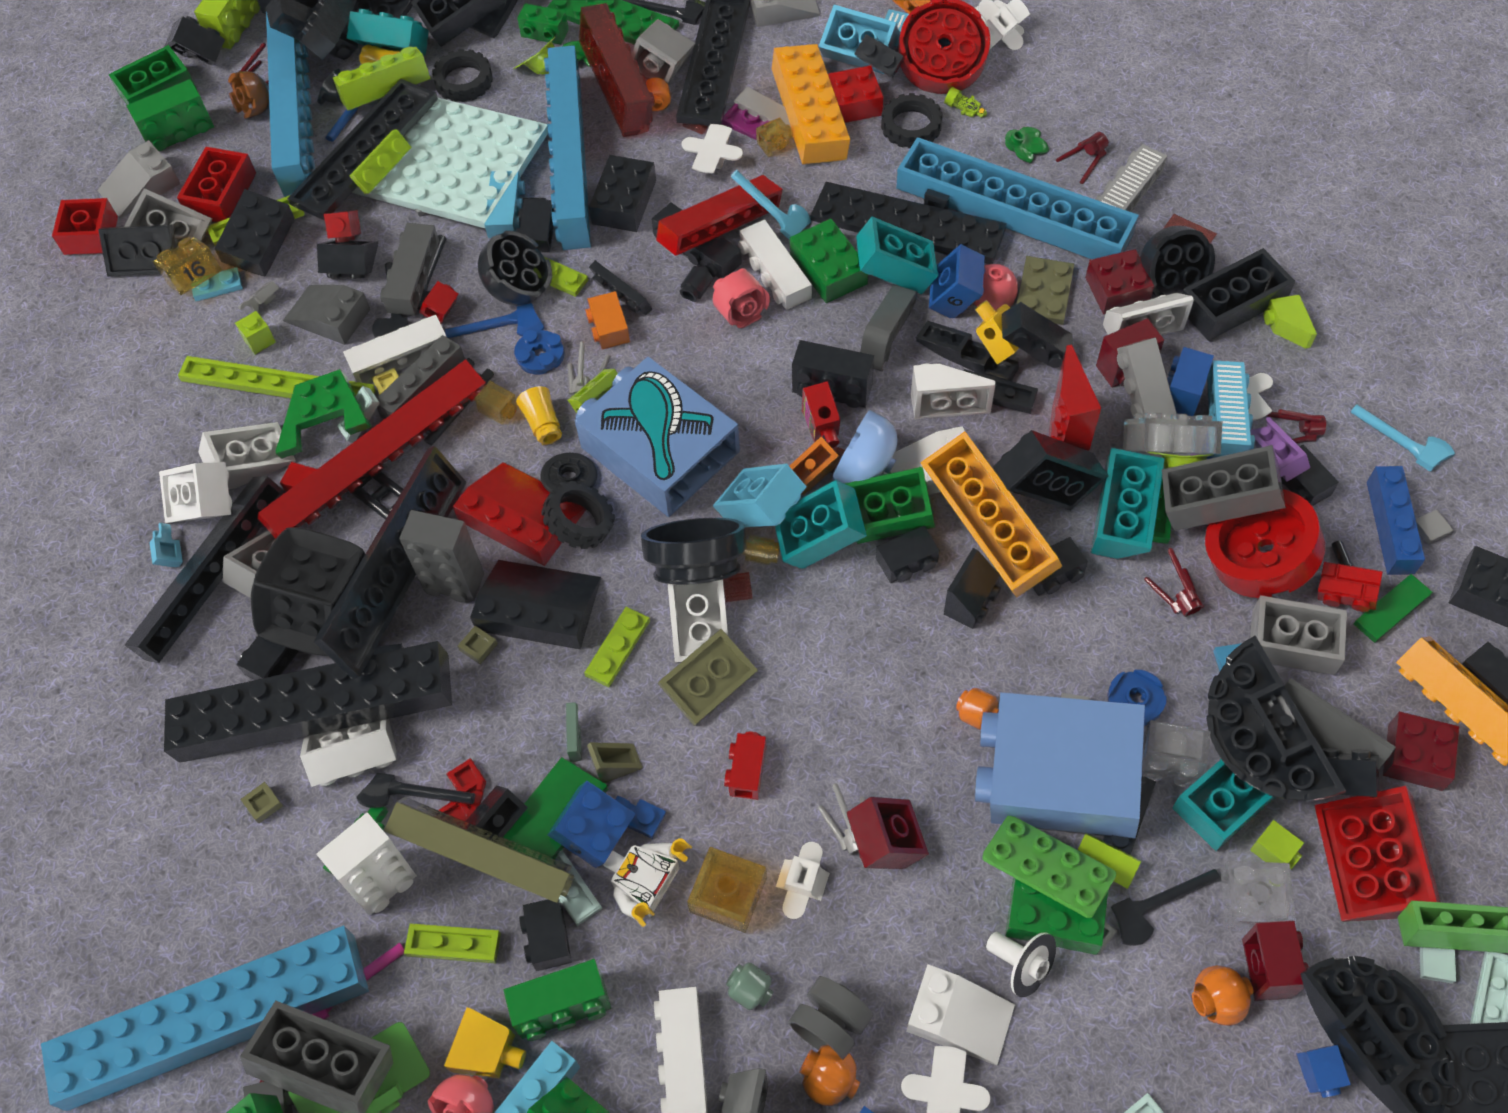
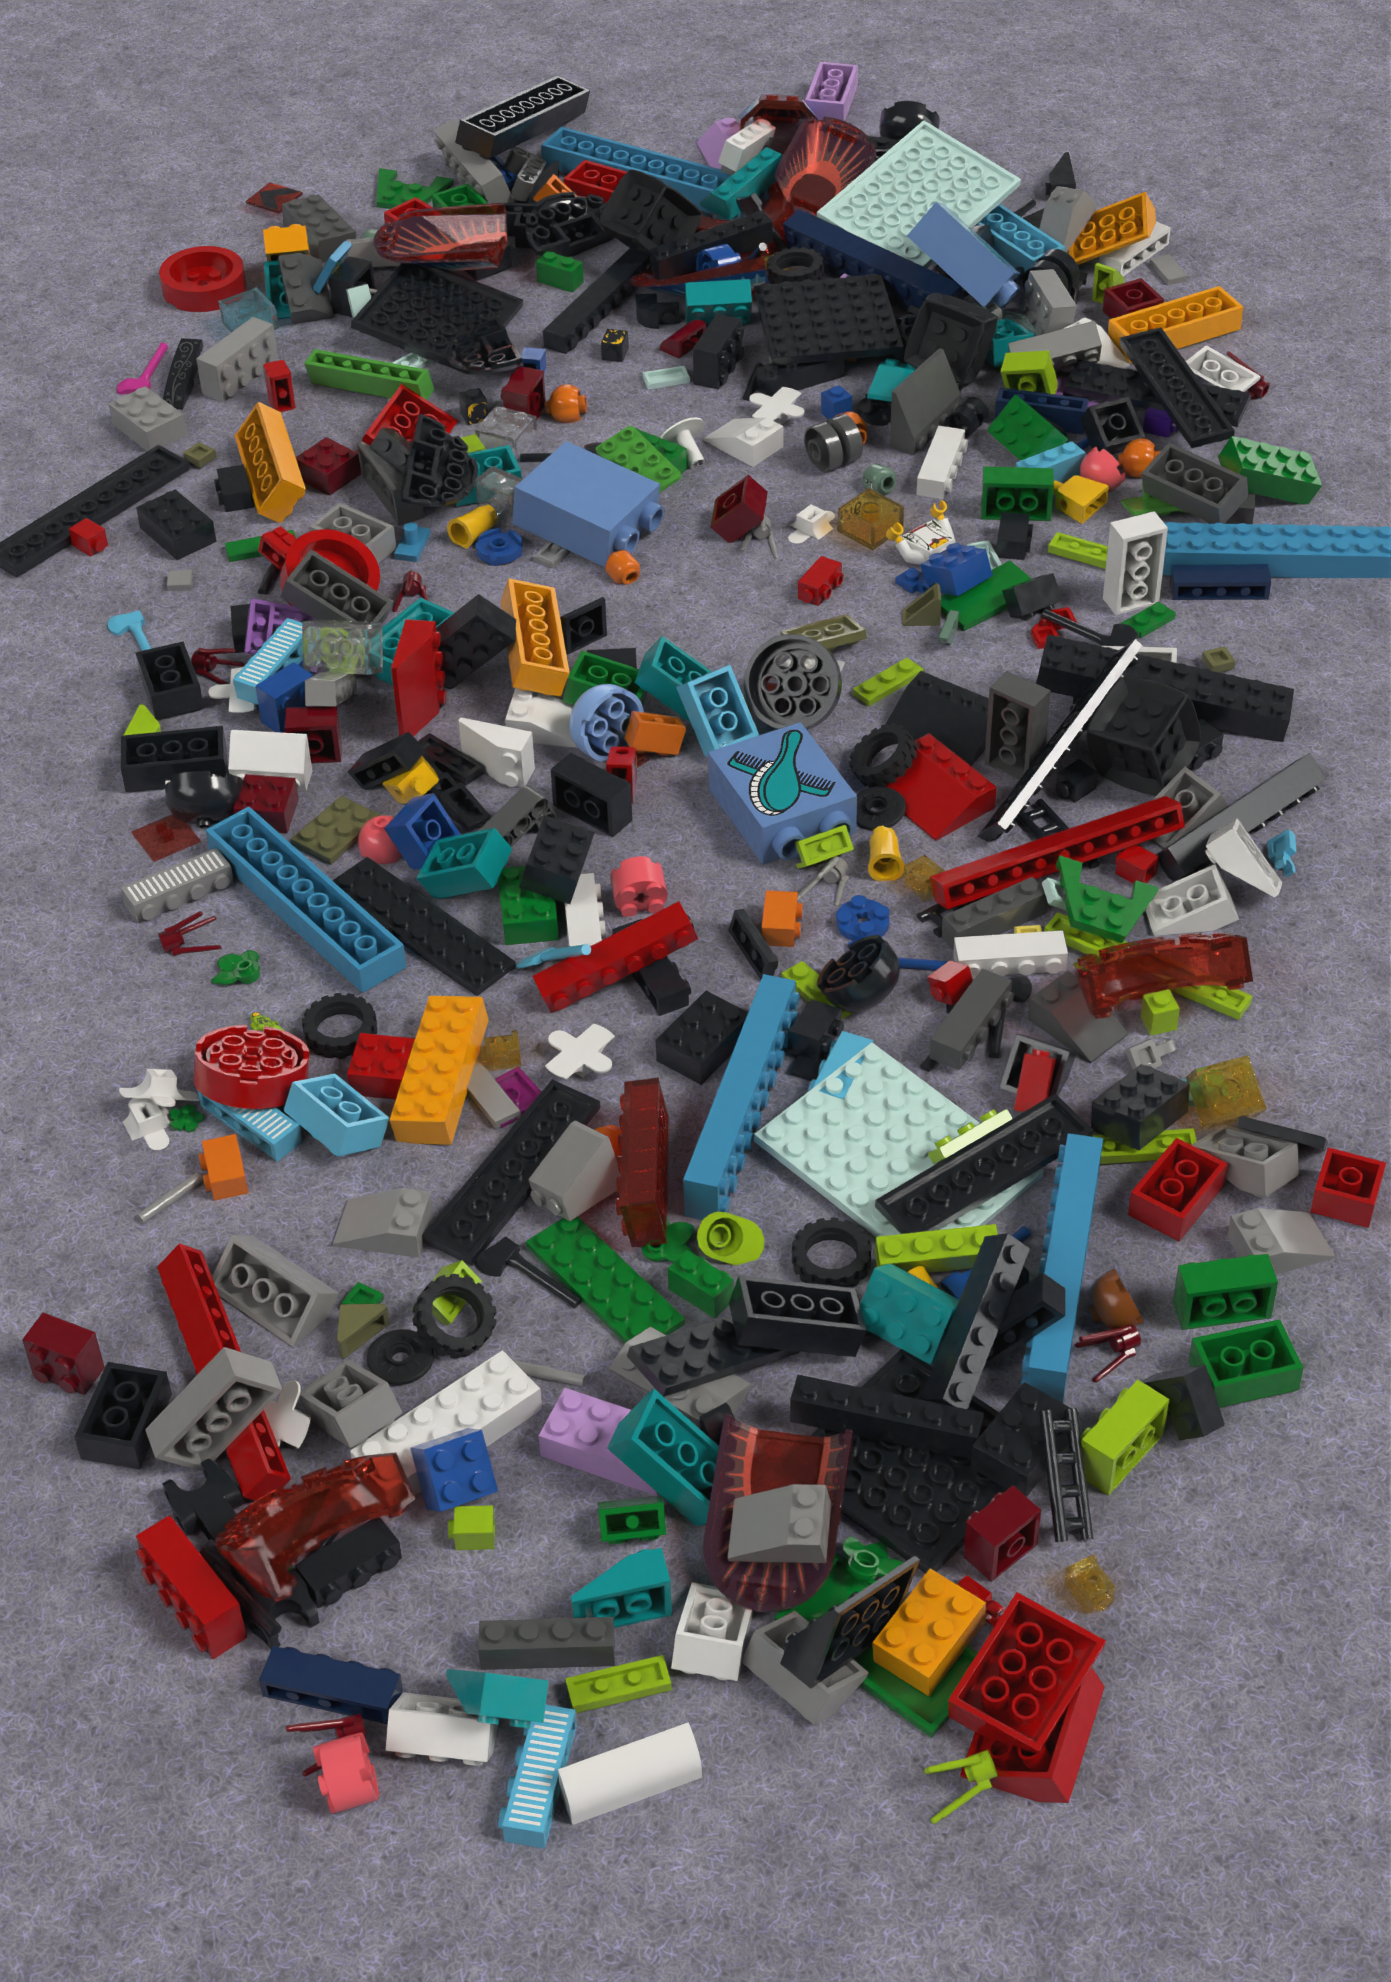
camera: 160 degrees left, 15 degrees down
(272, 934) = (1220, 582): none -> dark blue brick
(274, 354) = (1159, 965): none -> clear red windscreen
(479, 849) = (1048, 545): olive brick -> none
(813, 268) = (556, 859): none -> black brick
(879, 56) = (333, 1070): black plate -> none
(1186, 704) = (468, 527): none -> yellow plant
(1318, 377) = (169, 680): none -> black brick
(1334, 936) = (473, 406): none -> black brick
(1395, 520) = (208, 582): blue brick -> none

